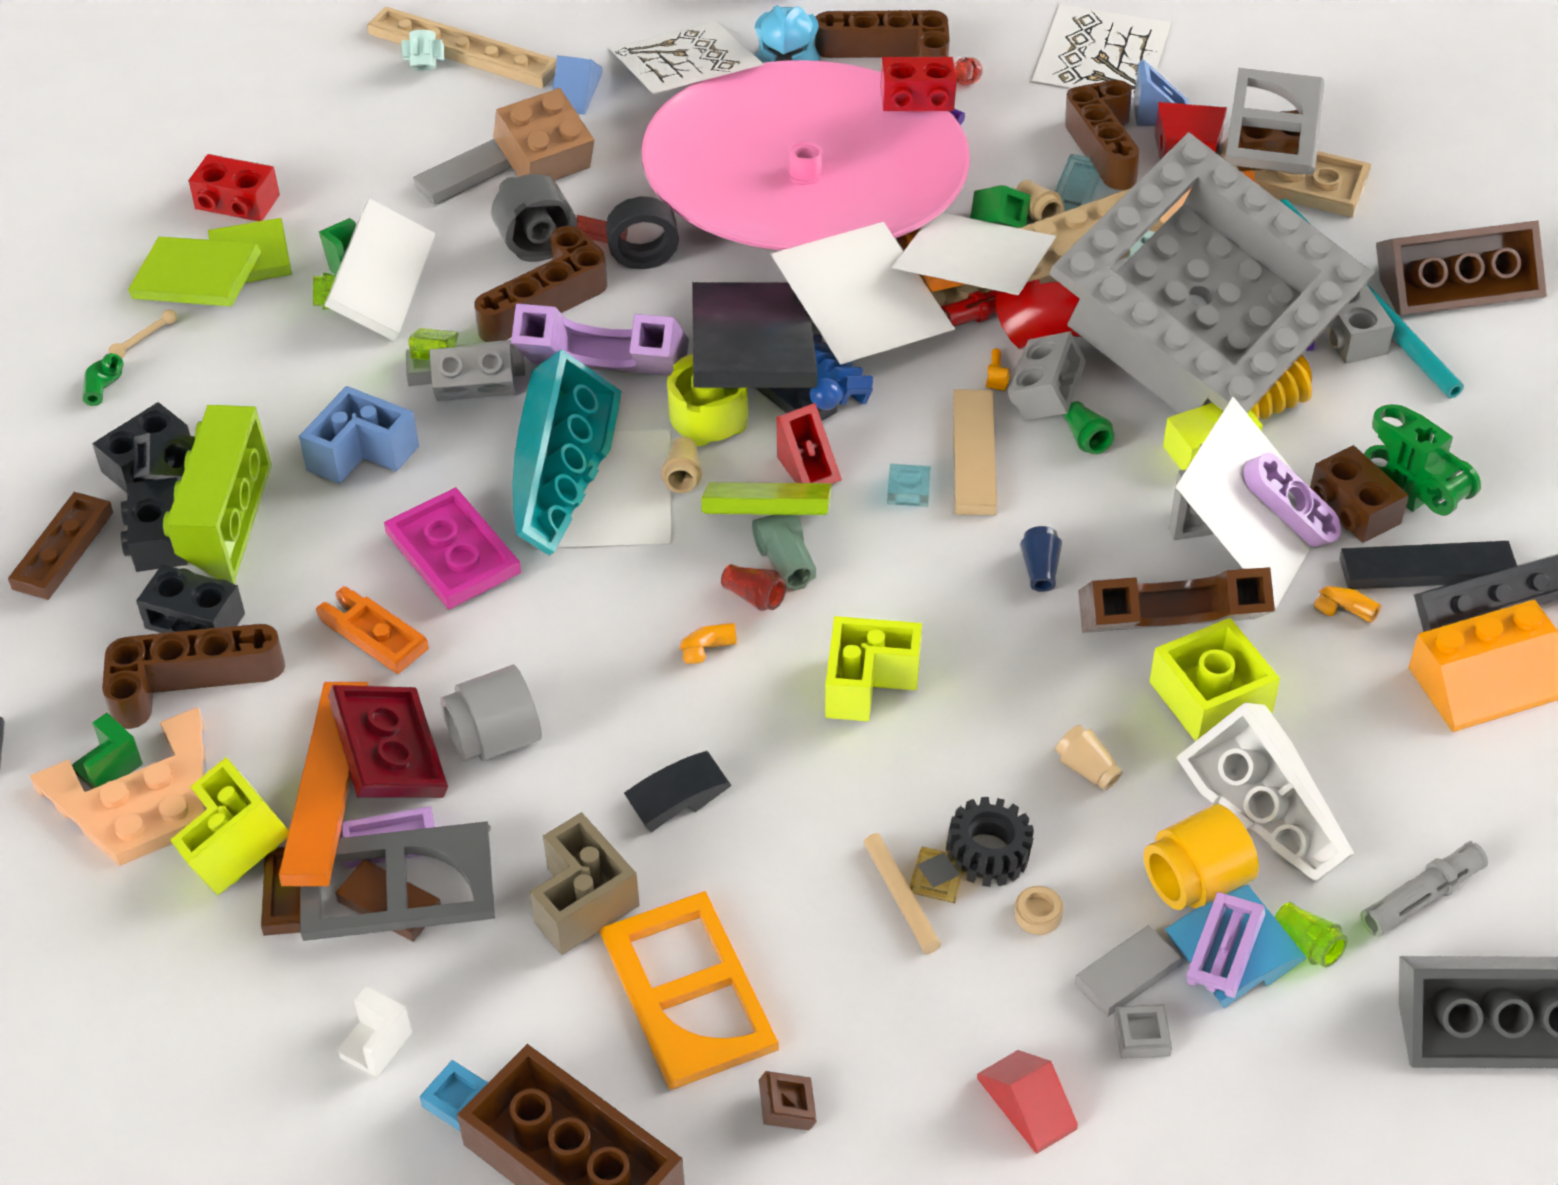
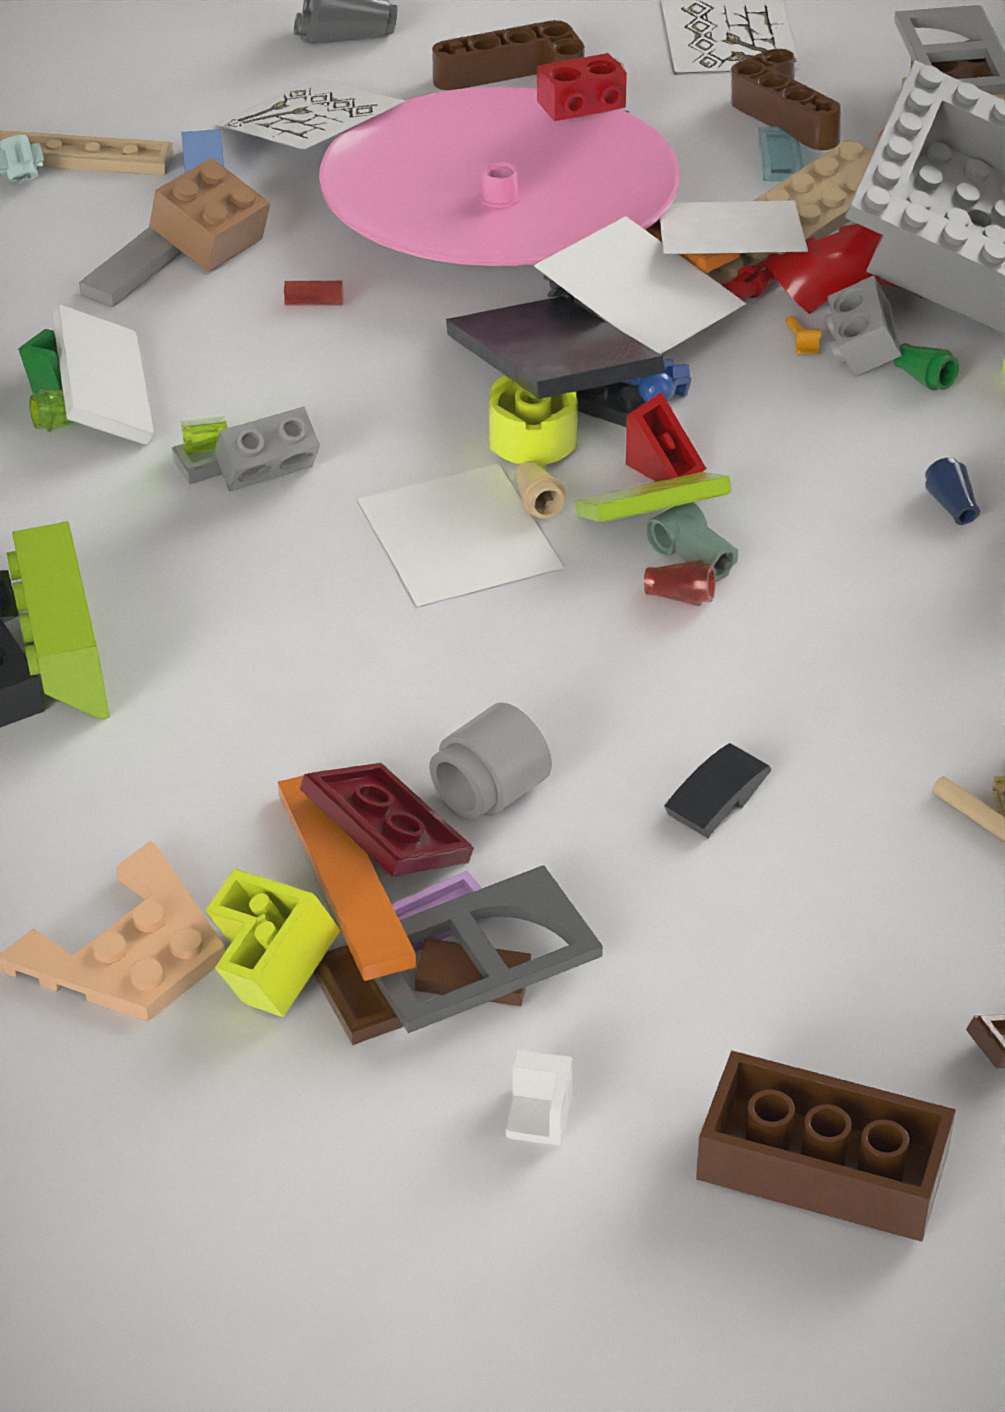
camera: 20 degrees left, 5 degrees down
(112, 758) = (80, 909): green panel -> none
(183, 661) = (112, 798): reddish brown beam -> none
(188, 601) = (84, 745): black brick -> none
(357, 429) = (176, 529): medium blue brick -> none
(374, 630) = (298, 718): orange hinge -> none
(451, 1092) = (670, 1129): dark azure tile -> none
(452, 548) = (340, 622): dark pink plate -> none
(528, 213) = (245, 288): dark grey brick -> none
(559, 445) = (398, 494): teal wedge -> none
(563, 283) = (309, 342): reddish brown beam -> none
(587, 888) = (685, 893): dark tan brick -> none
(637, 211) = (358, 260): black tyre -> none
(647, 348) = (450, 386): lavender arch -> none
(680, 1053) = (866, 1031): light orange window -> none
(705, 637) = (659, 642): light orange arm -> none
(786, 31) = (411, 66): medium azure helmet -> none
(868, 656) = (845, 618): neon yellow brick -> none
(909, 485) = (778, 457): clear light blue plate -> none
(974, 452) = (826, 413): tan tile -> none
(1001, 206) = (721, 184): green panel -> none
(1043, 201) = (754, 174): tan cone -> none
(1149, 90) = (815, 63): medium blue slope -> none
(1176, 120) = (864, 87): red torso -> none

